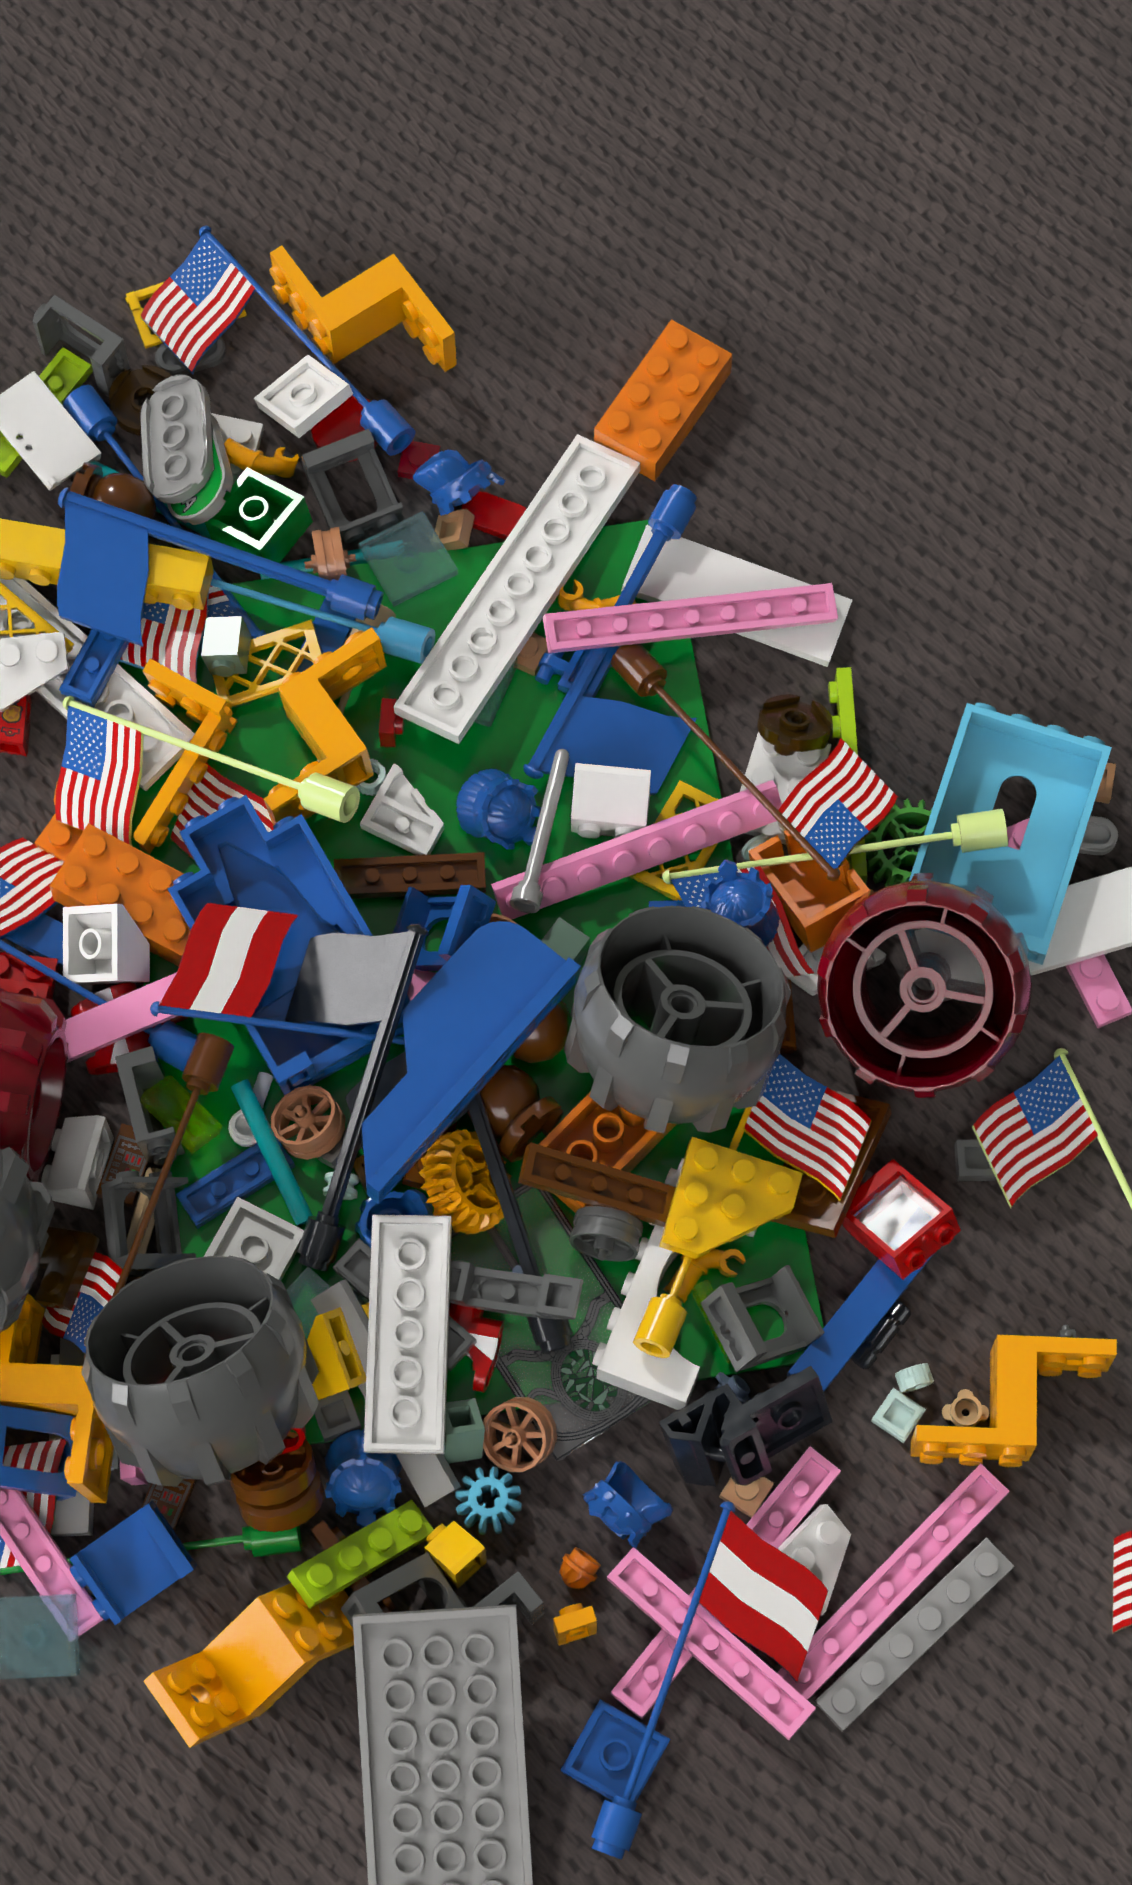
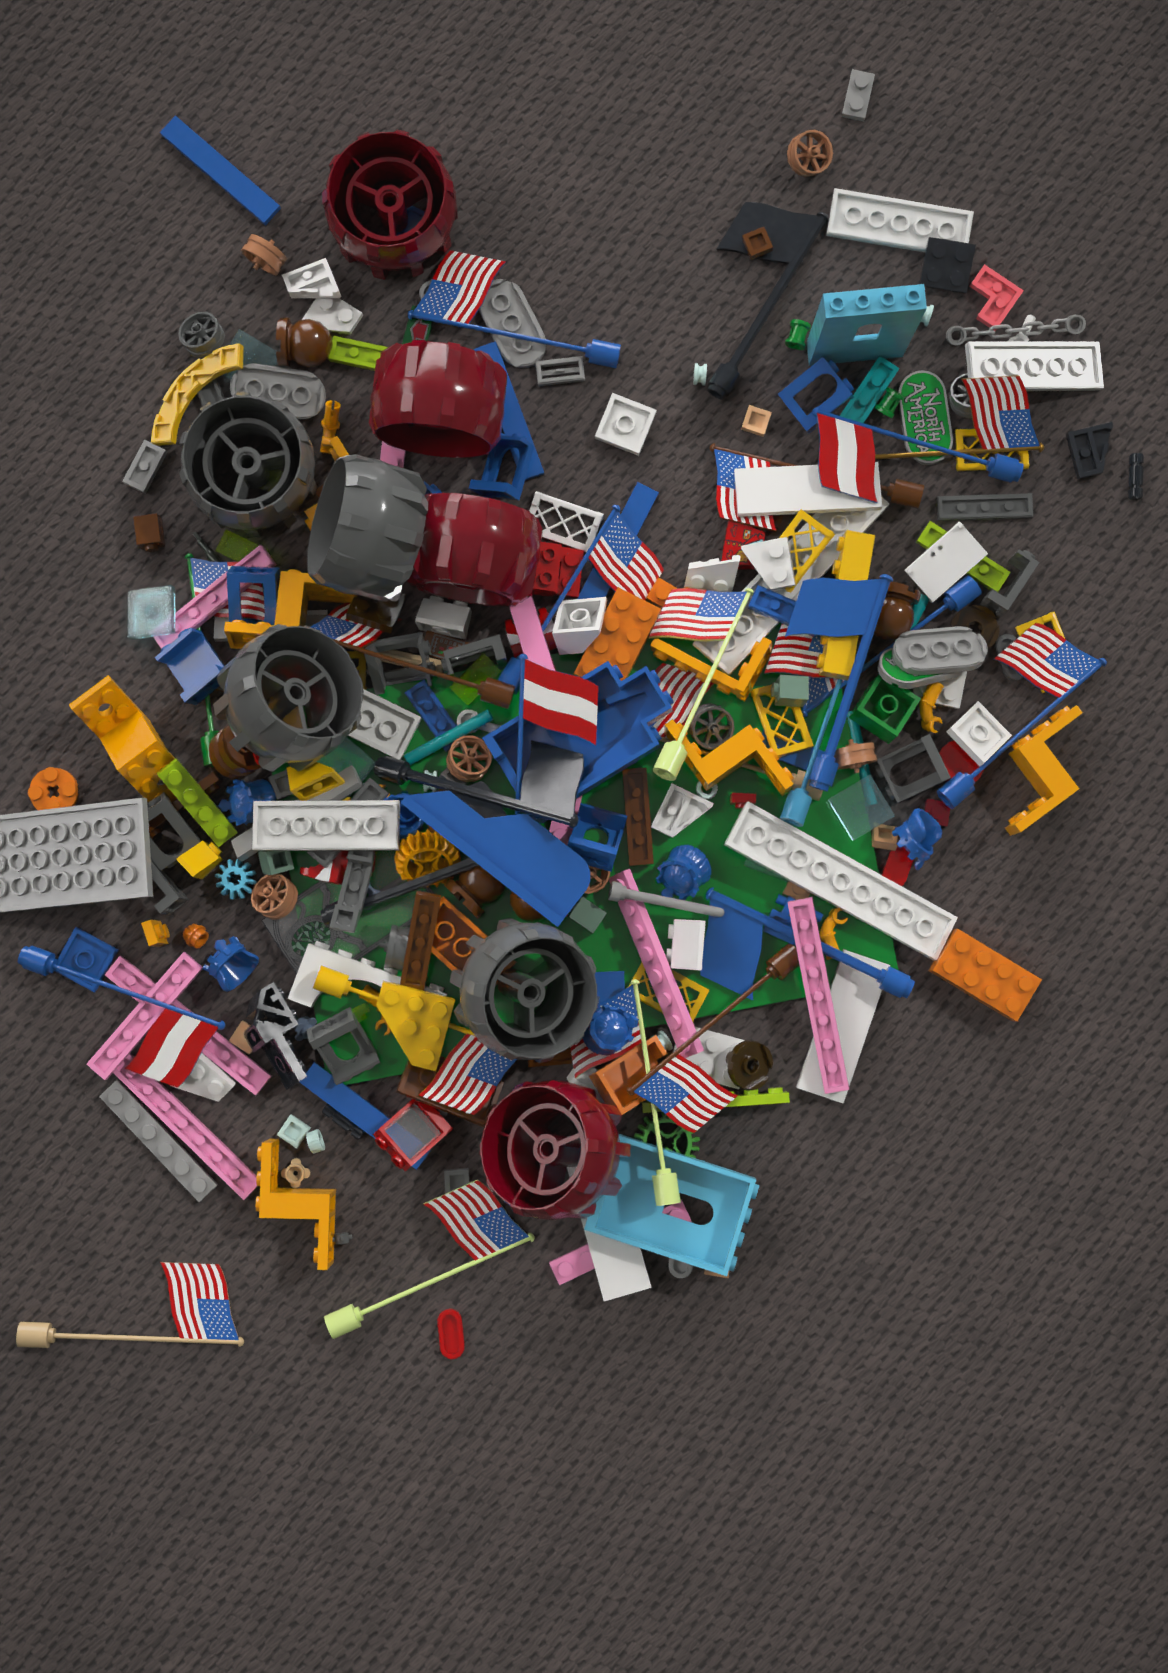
camera: 90 degrees right, 15 degrees up
(37, 758) = (713, 574): none -> white wing
(285, 748) = (711, 726): none -> dark grey wheel
(307, 1808) = (51, 778): none -> orange plate

